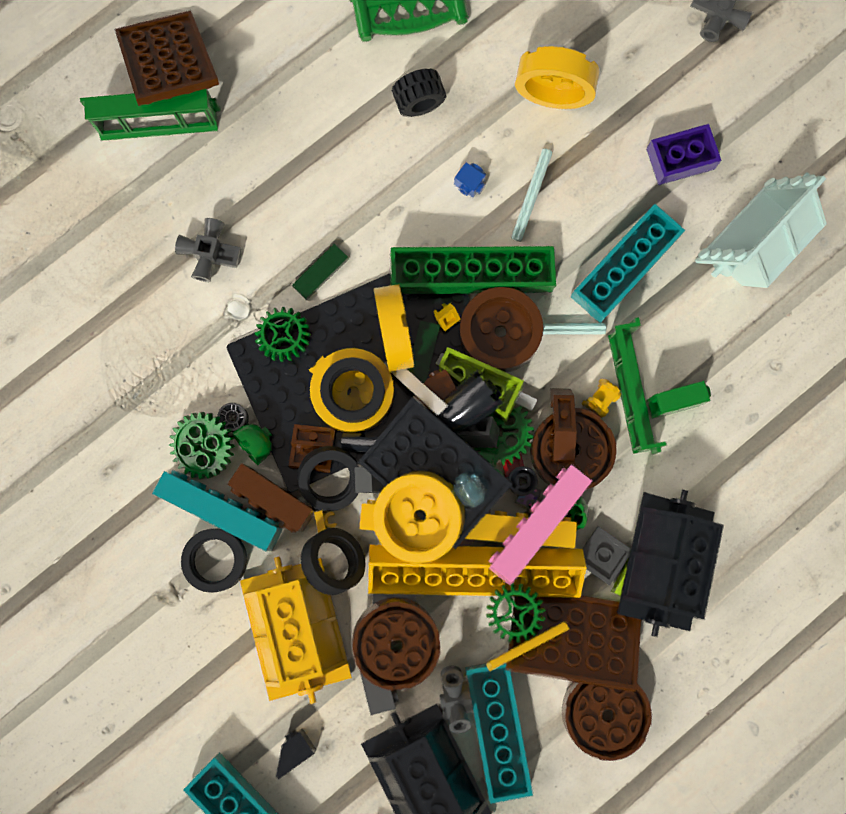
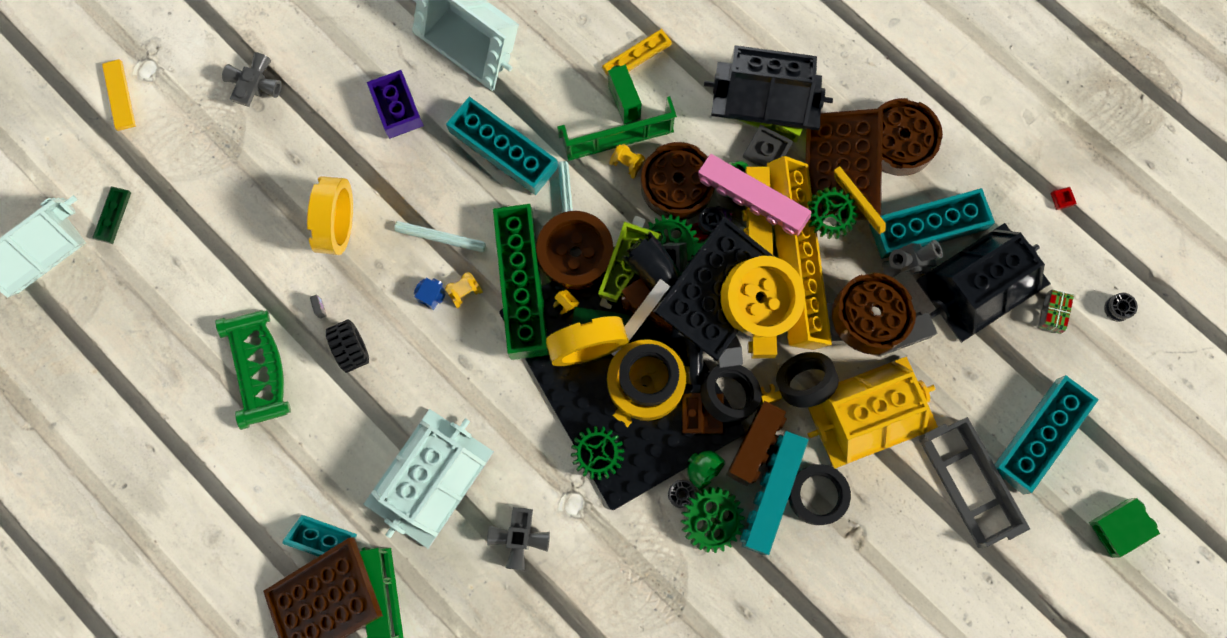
camera: 95 degrees left, 5 degrees down
(149, 759) = (992, 476): none -> dark grey piece
(232, 61) = (315, 536): none -> teal slope
(279, 168) = (428, 478): none -> light aqua piece
(294, 752) = (979, 399): black slope -> none
(320, 272) = (530, 427): dark green tile -> none
(466, 69) = (318, 306): none -> dark grey tile
(469, 489) = (735, 251): clear light blue head -> none
(472, 213) = (462, 287): none -> yellow piece
(564, 424) = (656, 184): reddish brown slope -> none
(730, 424) = (640, 52): none -> yellow tile

